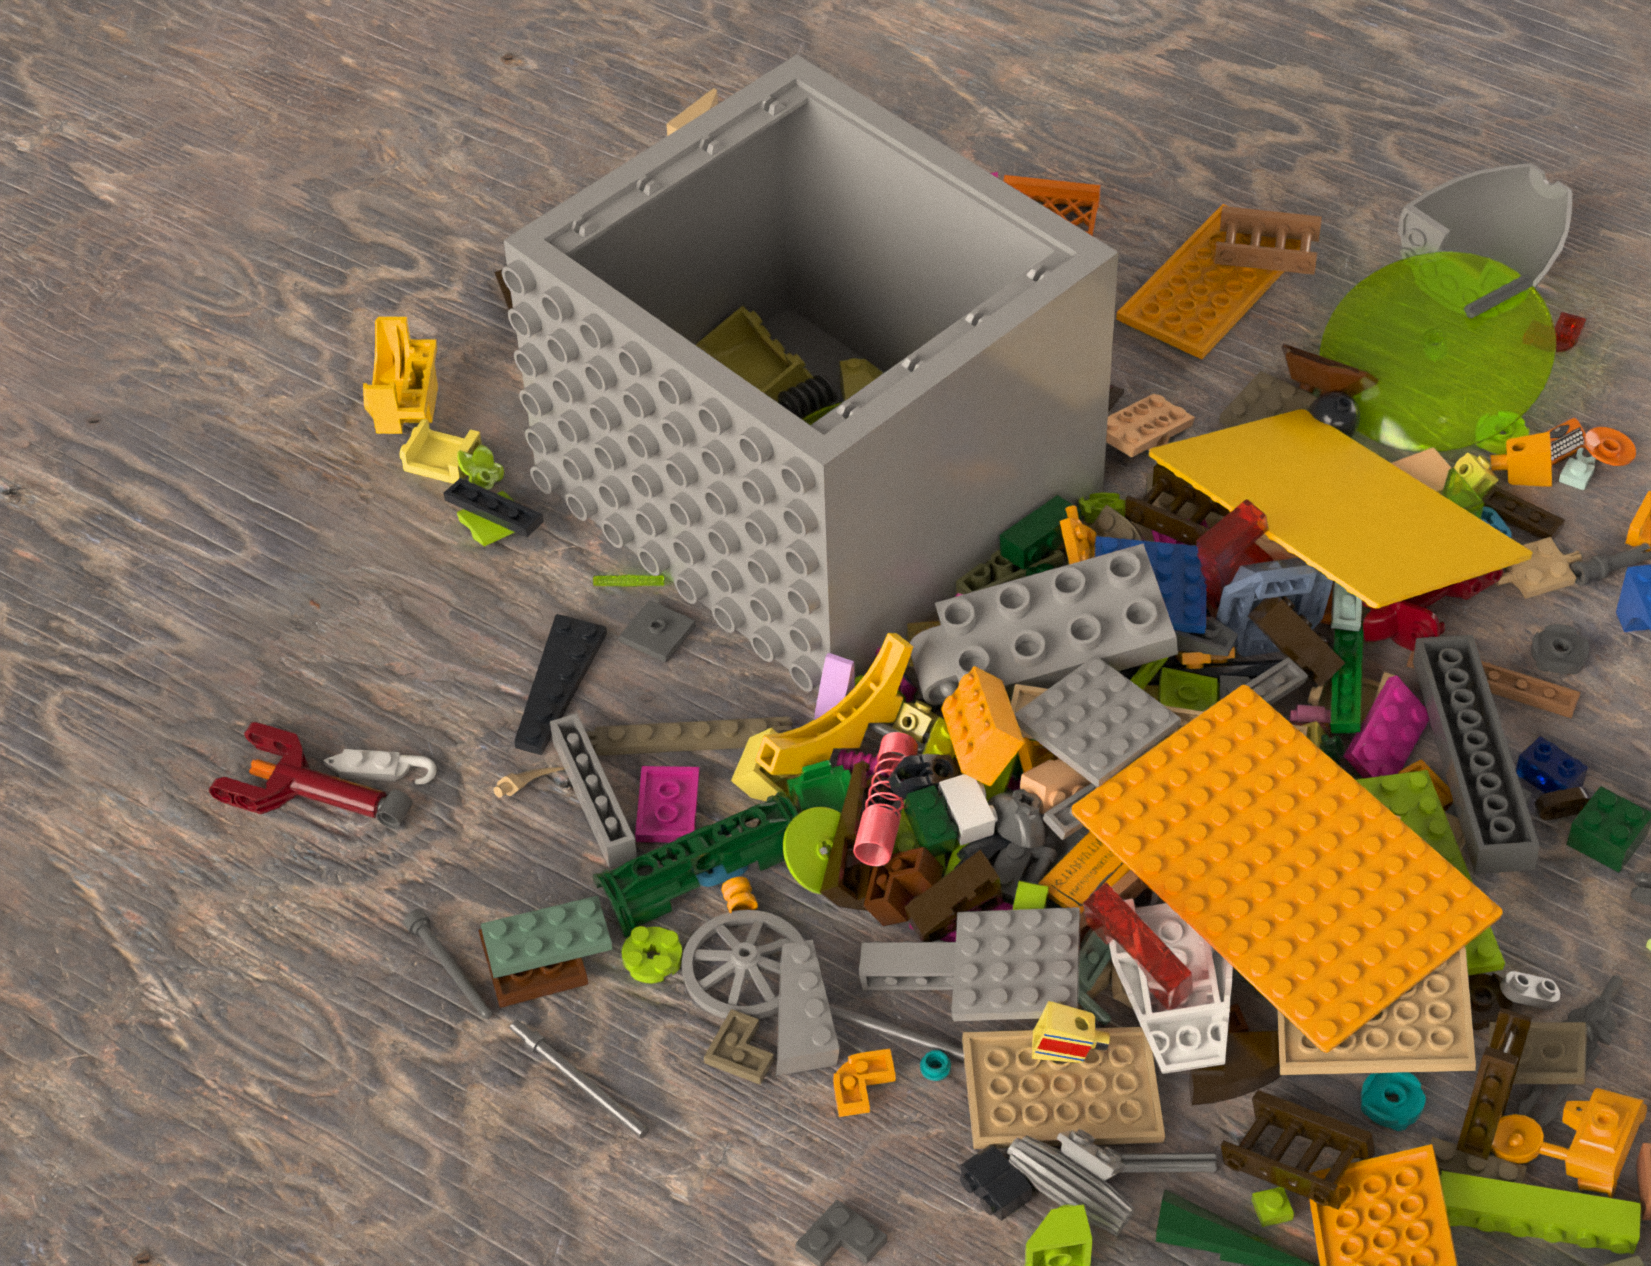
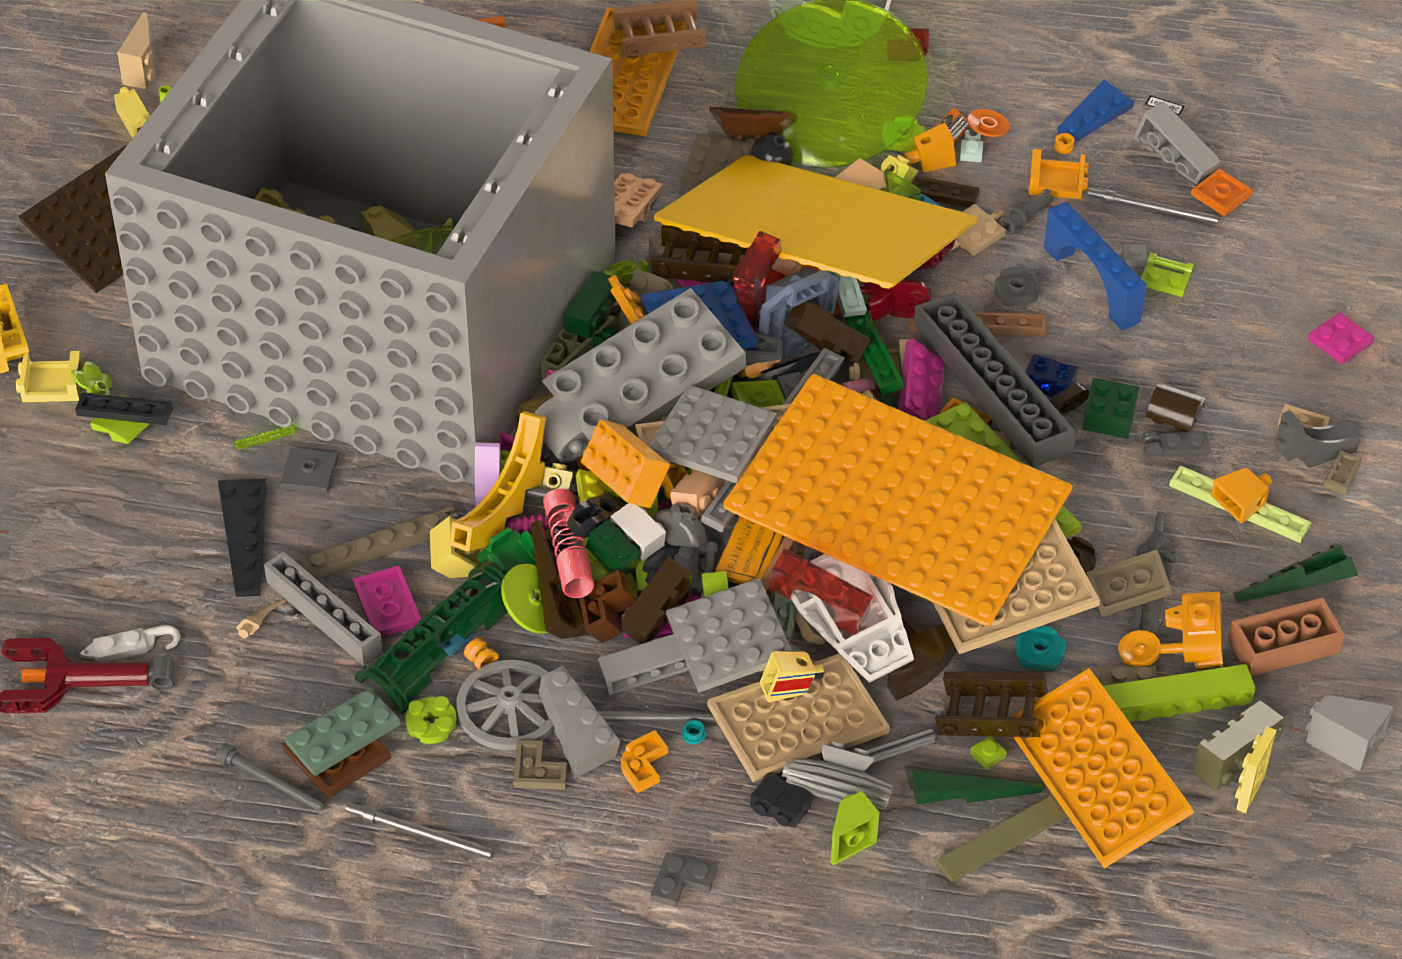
camera: 25 degrees left, 0 degrees up
(1494, 1083) = (1116, 610): dark brown fence -> none
(1498, 296) = (868, 26): dark grey axle -> none
(1530, 990) = (1104, 540): light grey plate -> none

